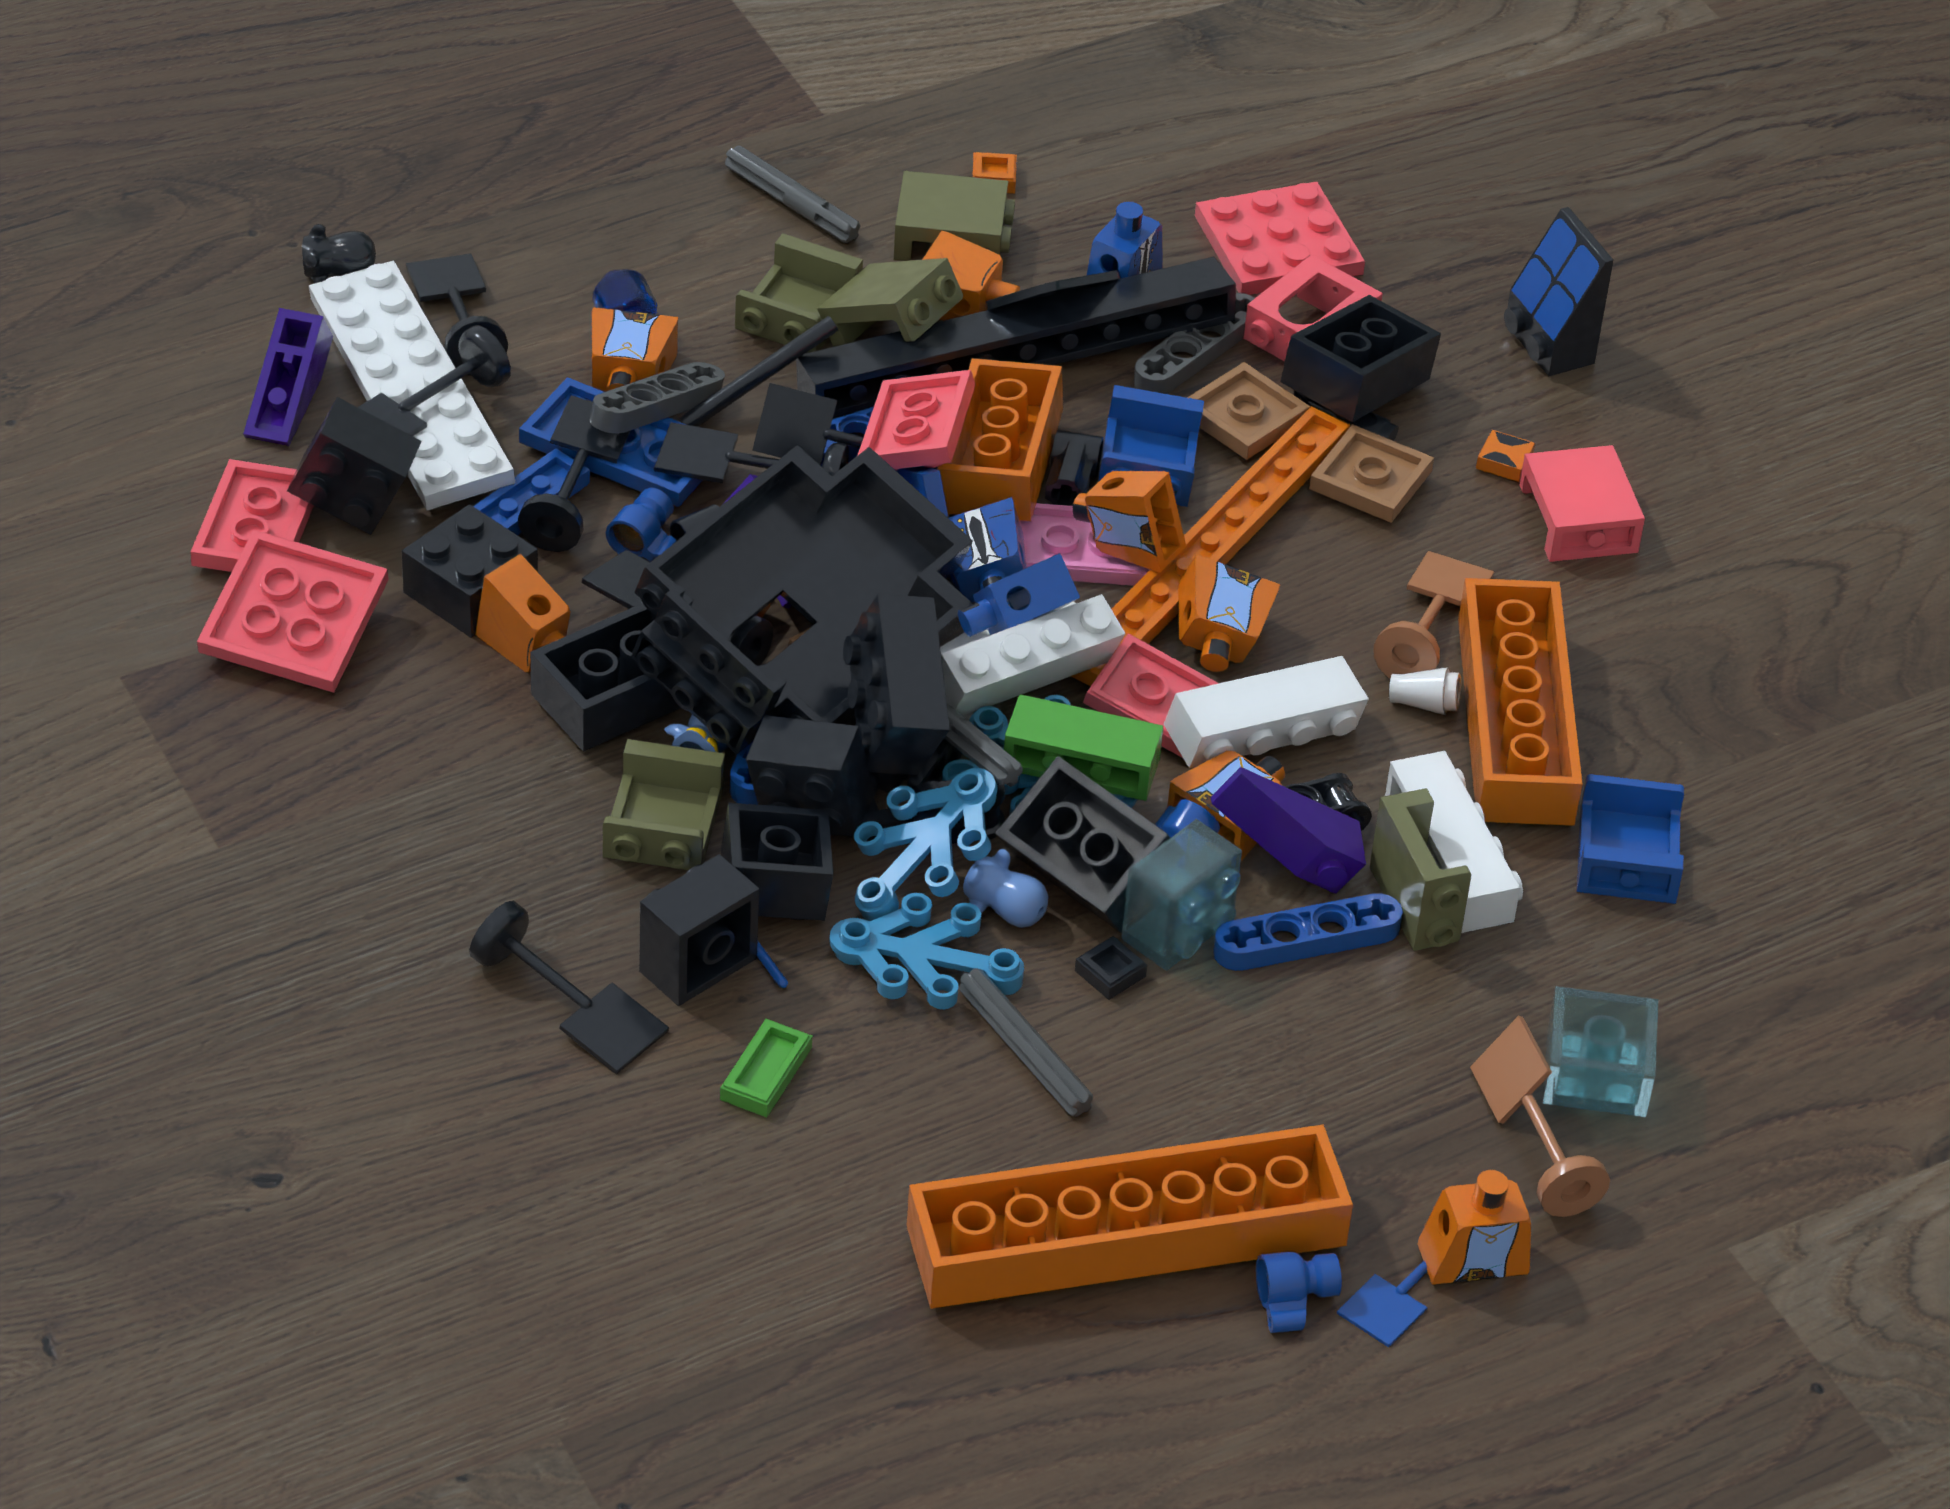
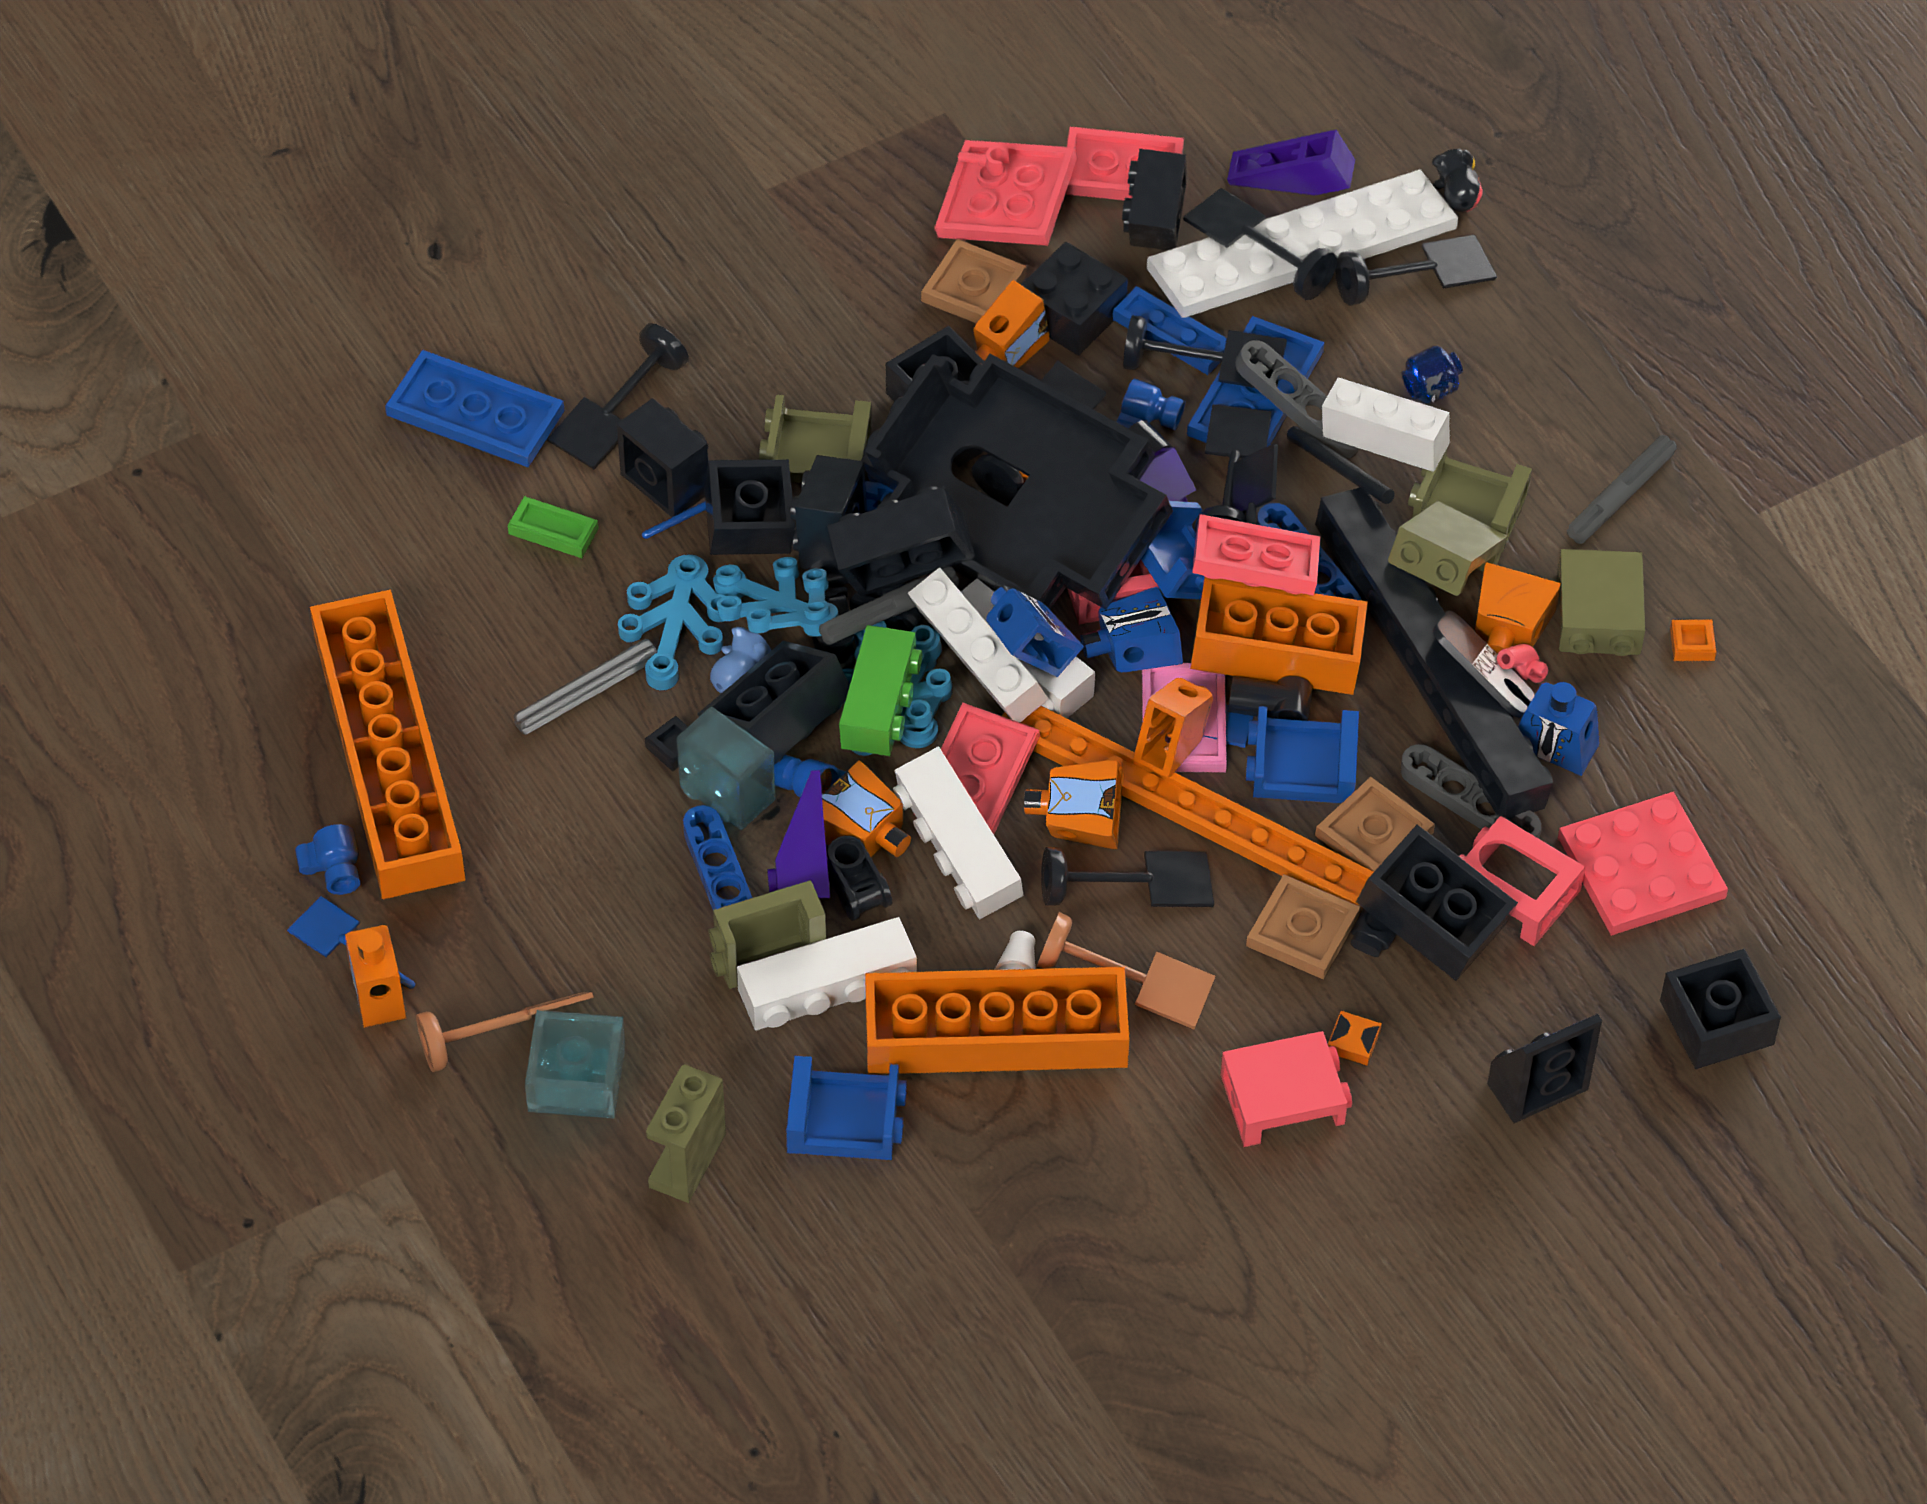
camera: 90 degrees right, 10 degrees up
(252, 609) = (992, 159): none -> coral hand
(425, 658) = (970, 280): none -> medium nougat plate
(568, 1132) = (475, 408): none -> blue plate
(630, 346) = (1367, 365): orange torso -> none
(727, 316) = (1386, 424): none -> white brick
(1029, 277) = (1524, 661): none -> coral arm
(1310, 569) = (1172, 878): none -> black piece
(1475, 193) = (1720, 1008): none -> black brick
(1704, 945) = (691, 1129): none -> olive panel

